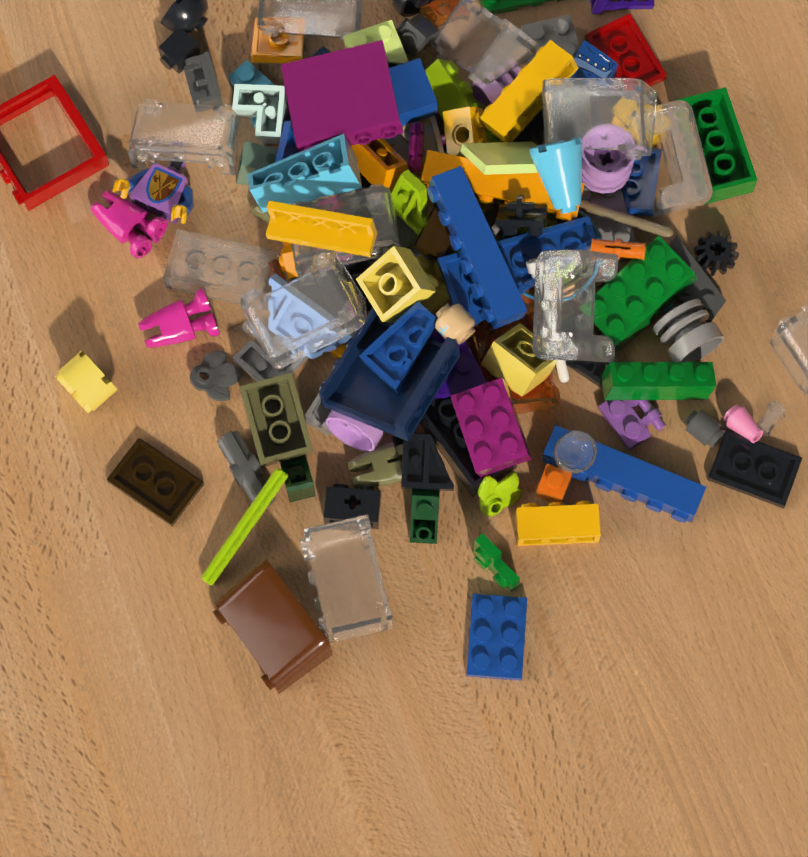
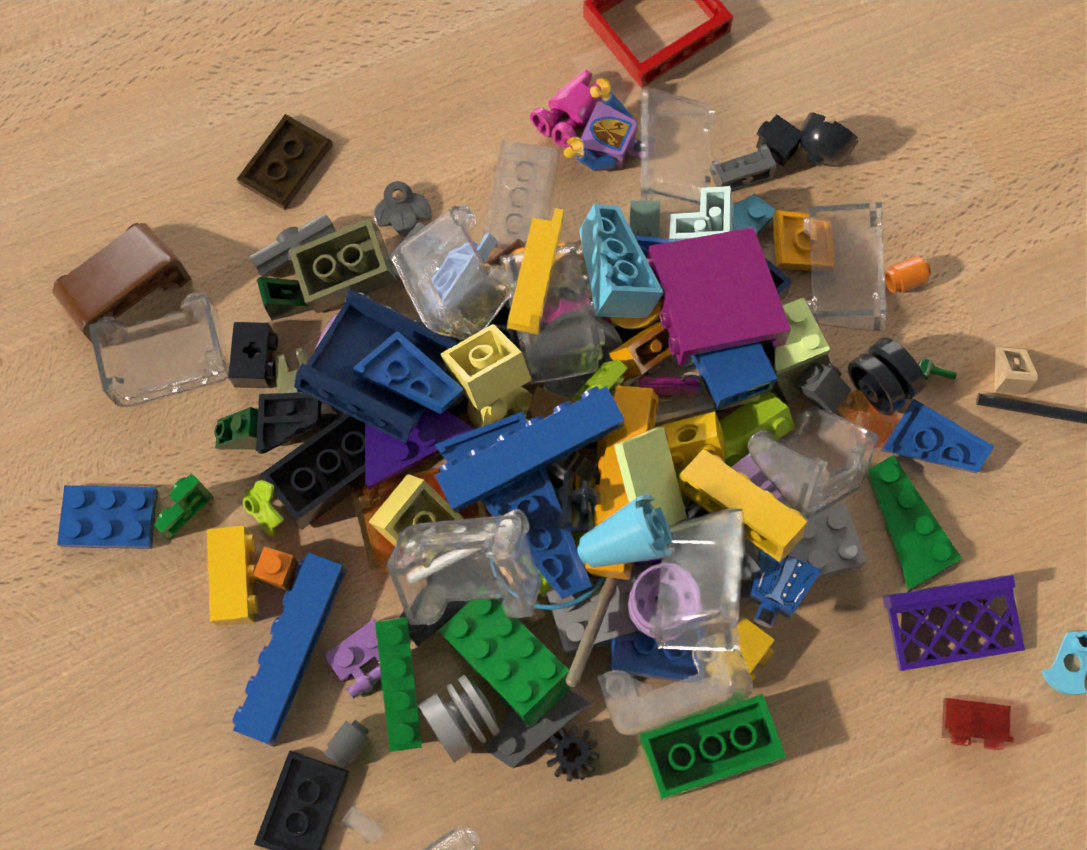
camera: 90 degrees right, 0 degrees up
(87, 380) = (384, 79): light yellow brick -> none
(175, 321) = (455, 161): dark pink piece -> none
(244, 526) = (227, 245): lime axle -> none
(455, 323) = (435, 430): tan head -> none
(491, 427) = (318, 482): magenta brick -> none
(575, 452) = (299, 583): clear hair -> none
(618, 247) = (546, 620): orange pin -> none
(628, 47) = (825, 636): red plate -> none
(741, 422) = (353, 790): bright pink cone -> none

